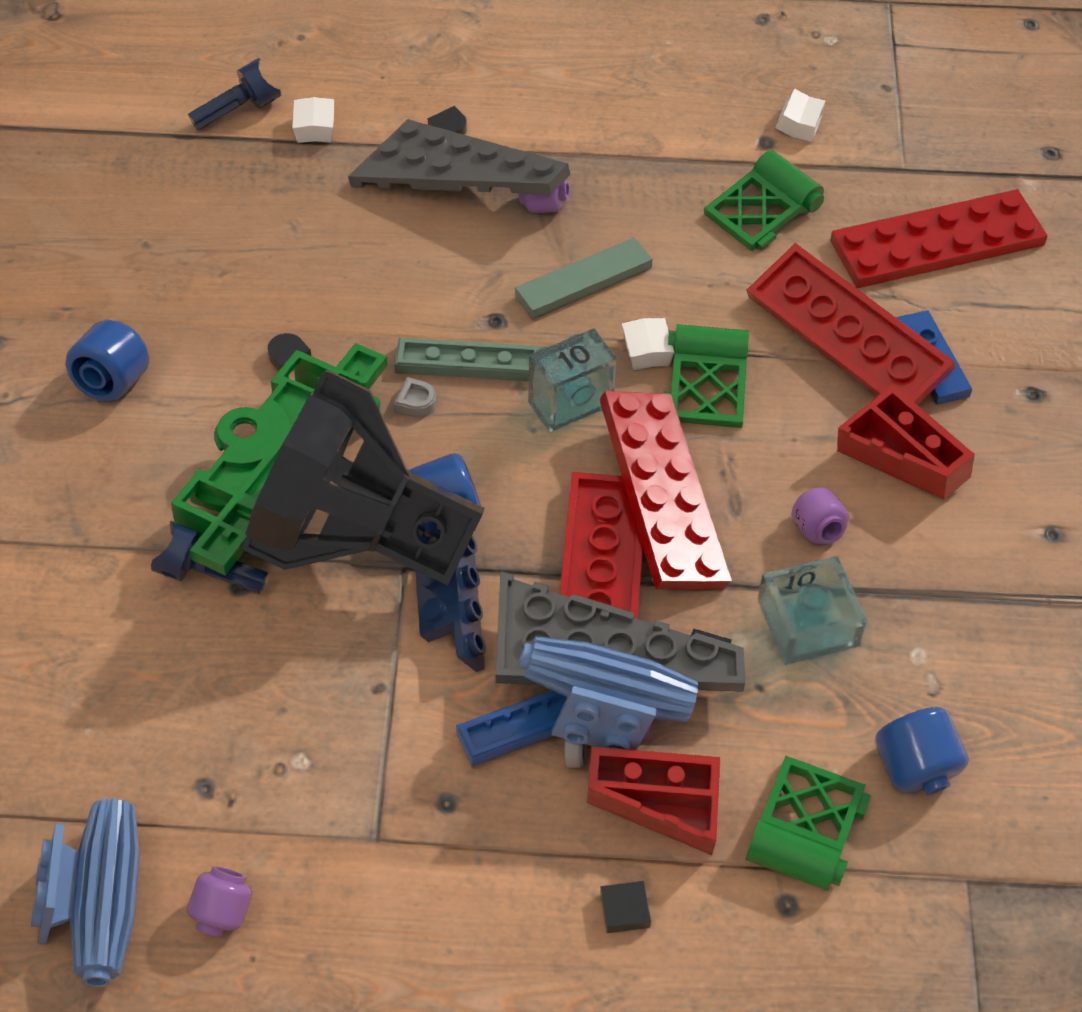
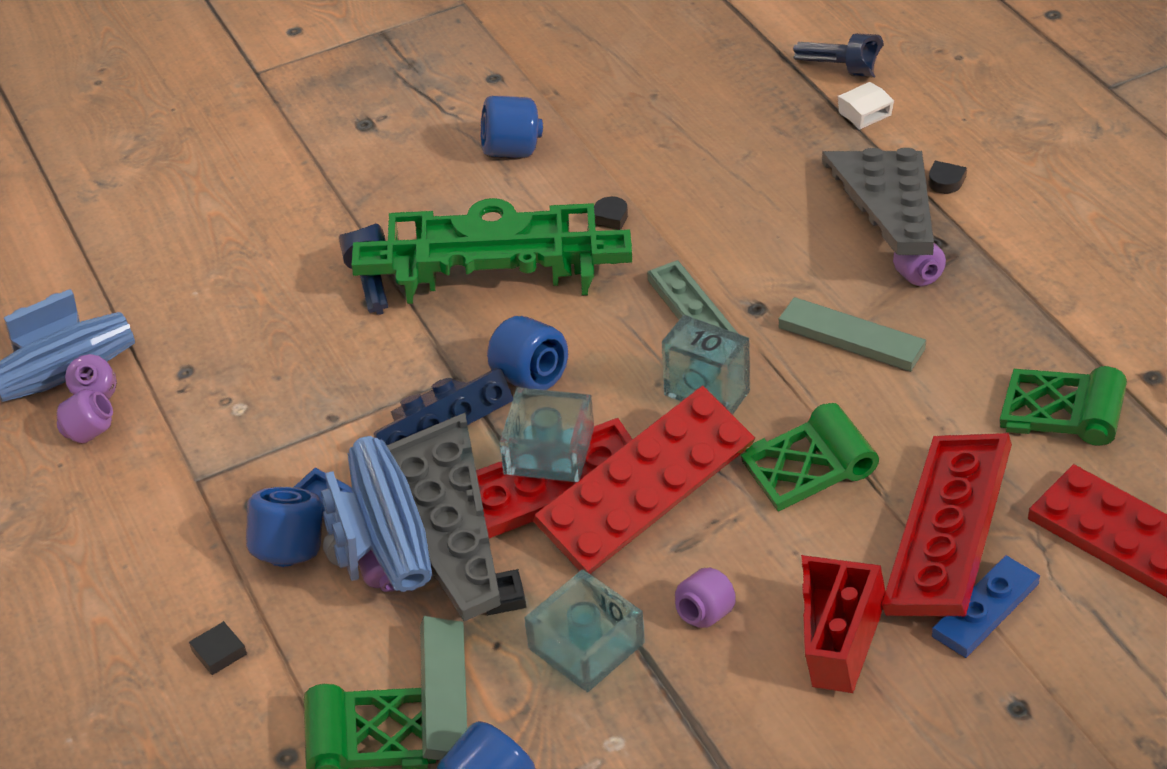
camera: 65 degrees right, 10 degrees down
(172, 871) = (80, 372): none -> medium lavender head
(375, 496) = (442, 290): black plate -> none
(416, 398) = (626, 301): light grey tile -> none
(527, 779) = (284, 525): none -> blue head
(582, 522) = (547, 434): none -> clear light blue brick
(648, 343) = (803, 397): white piece -> none
(659, 791) = (324, 615): red wedge -> none
(797, 745) = (442, 685): none -> sand green tile

